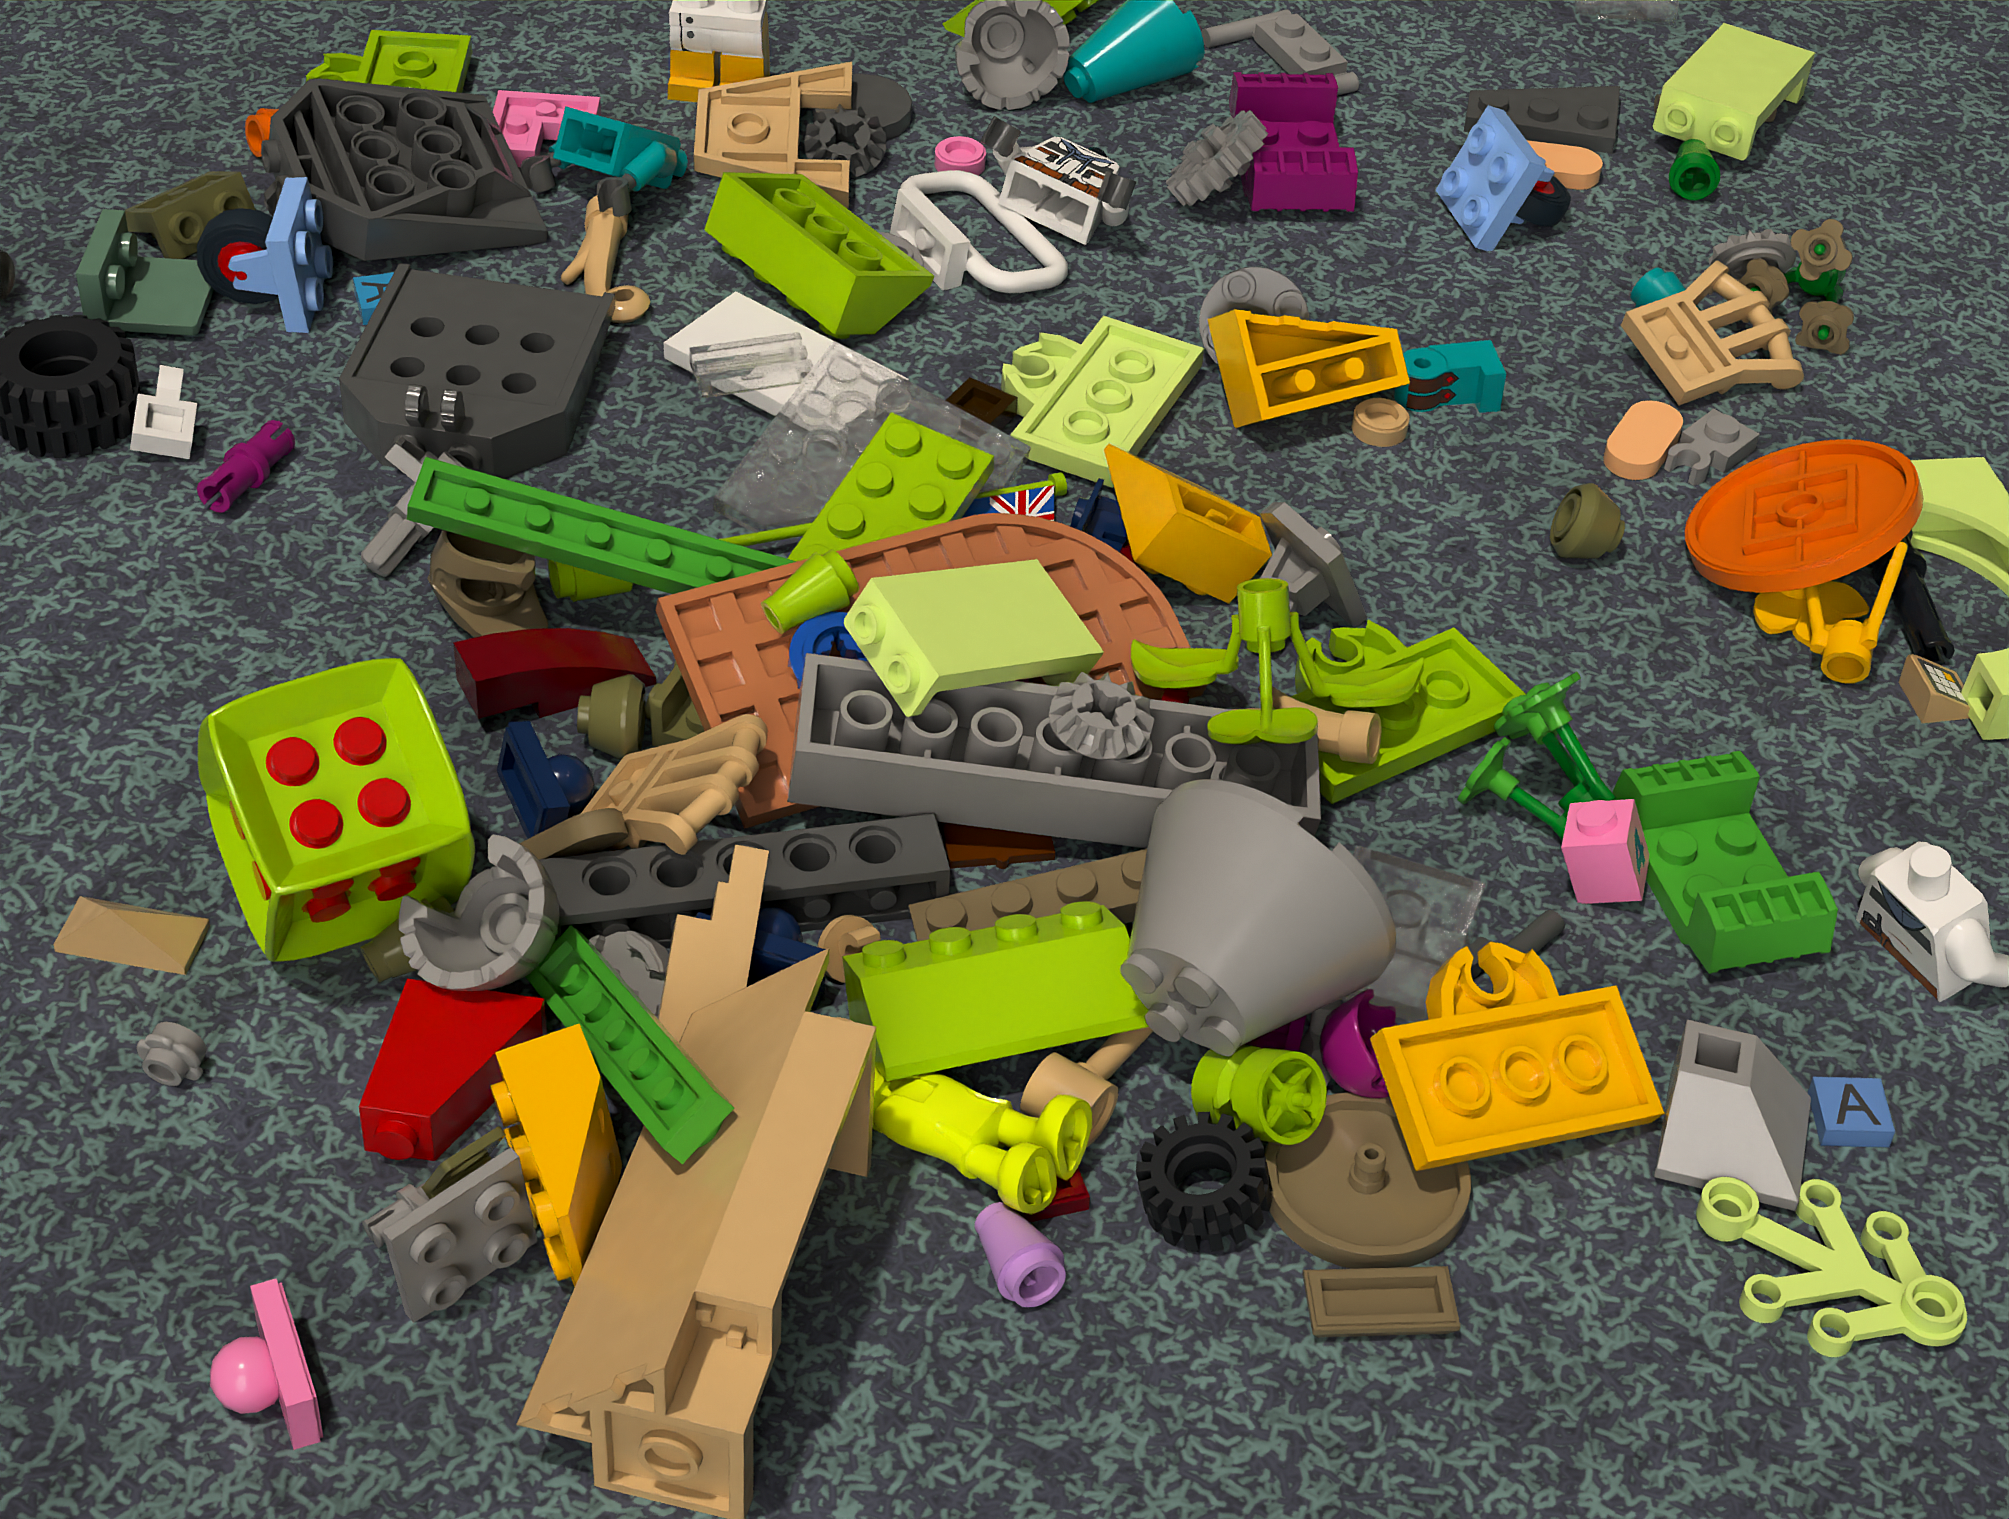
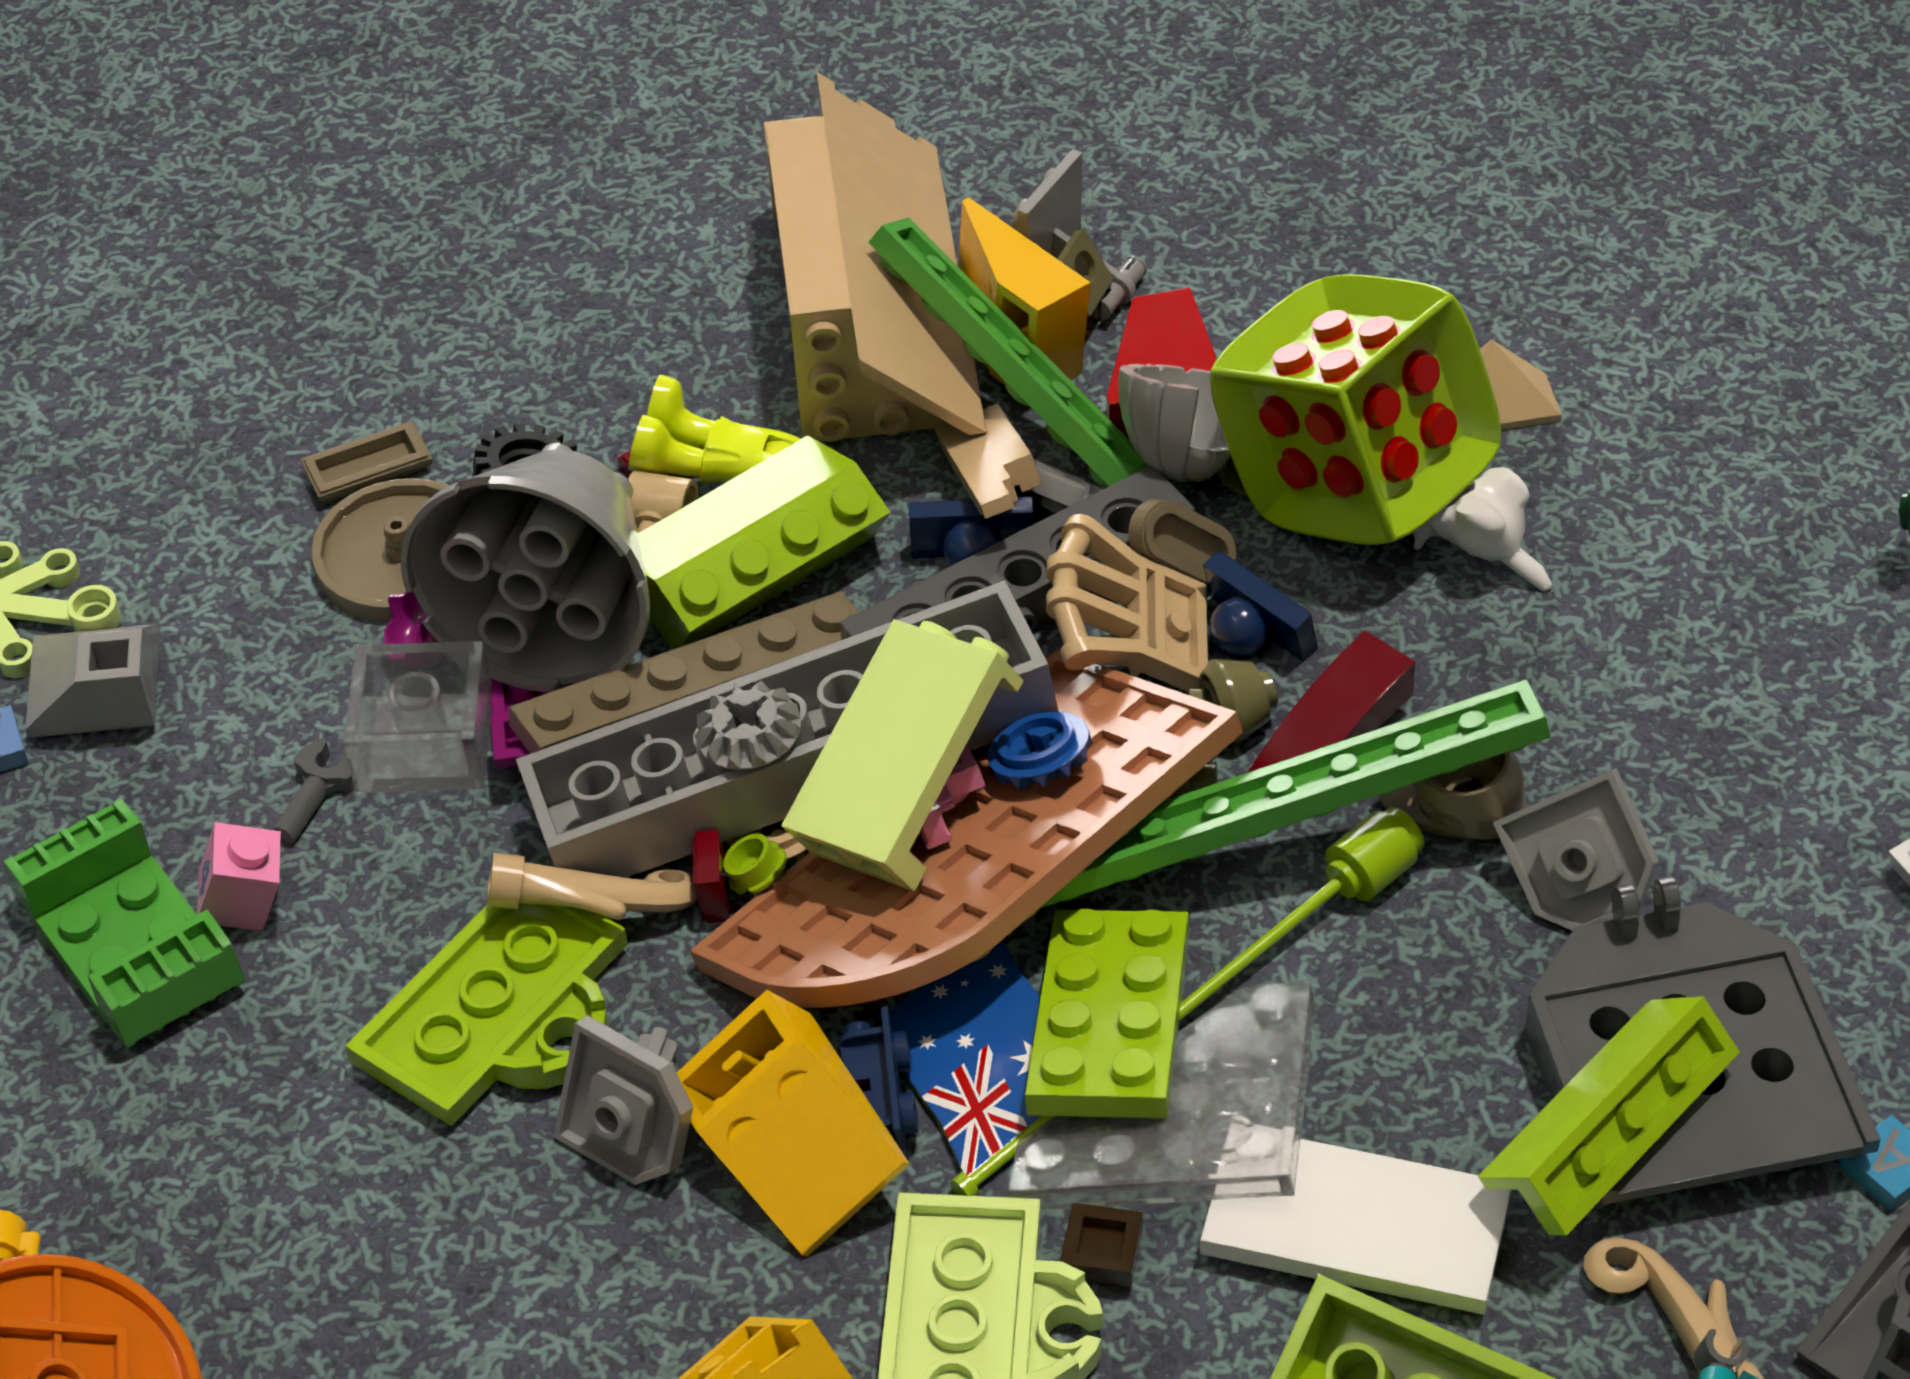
camera: 165 degrees right, 5 degrees up
(246, 466) = (1814, 854): magenta pin -> none
(259, 1370) = (1129, 158): bright pink tile -> none
(578, 312) = (1613, 1111): none -> lime panel
(750, 364) = (1402, 1119): clear tile -> none
(814, 589) = (1087, 765): lime cone -> none
(845, 937) = (894, 565): tan plate -> none
(1020, 1256) = (636, 379): lavender cone -> none
(1264, 624) = (597, 770): lime plant -> none
(1511, 1063) = (288, 624): yellow plate -> none
(1543, 716) = (320, 922): plant -> none
(1586, 524) = (323, 1328): olive cone -> none

